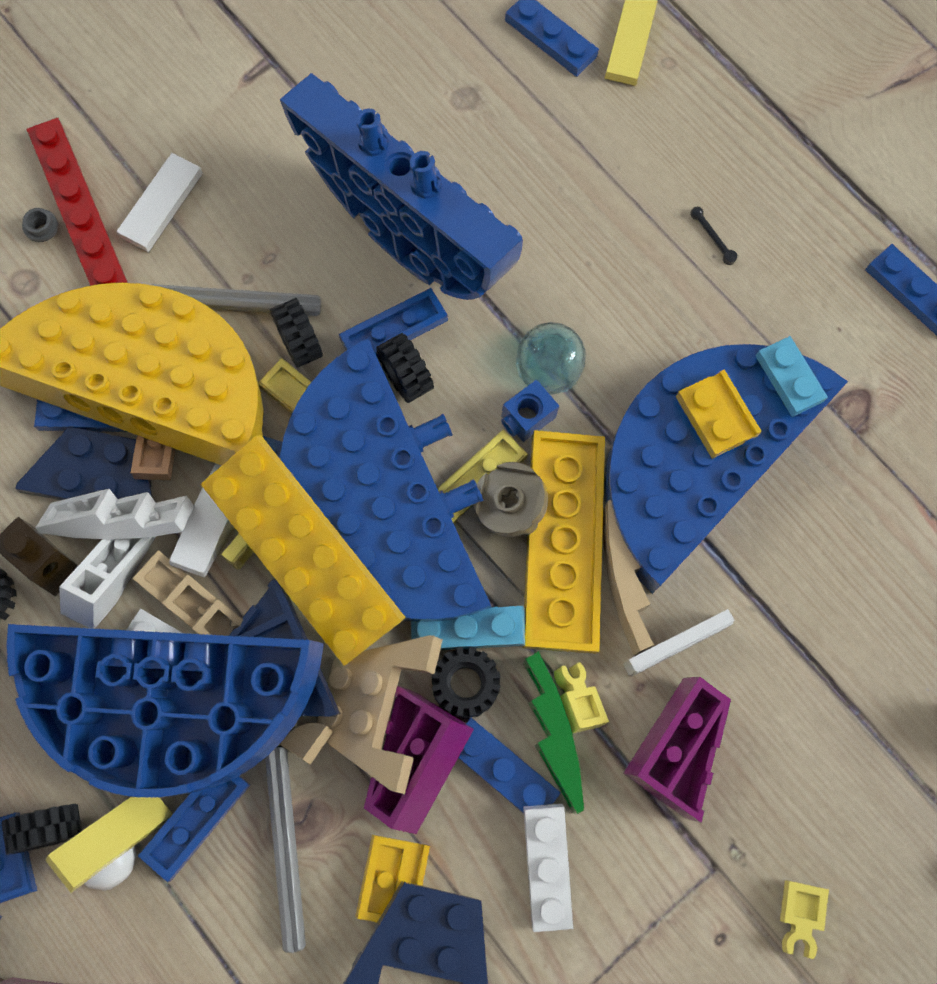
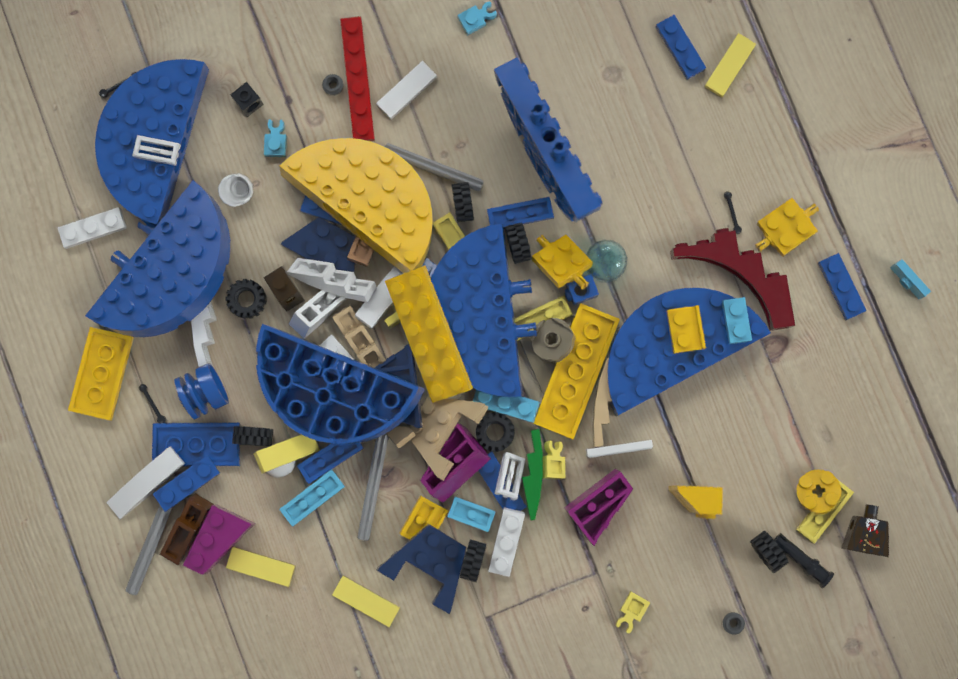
camera: 25 degrees right, 10 degrees up
(181, 906) = (312, 497): none -> medium azure plate
(235, 78) = (475, 19): none -> medium azure plate
(471, 838) = (471, 514): none -> medium azure plate
(484, 375) = (562, 261): none -> yellow plate
(502, 922) = (473, 560): none -> black tyre
(518, 779) = (502, 474): none -> white tile
(724, 291) = (748, 267): none -> dark red arch
(801, 231) = (787, 227): none -> yellow plate
(849, 681) = (703, 501): none -> yellow slope

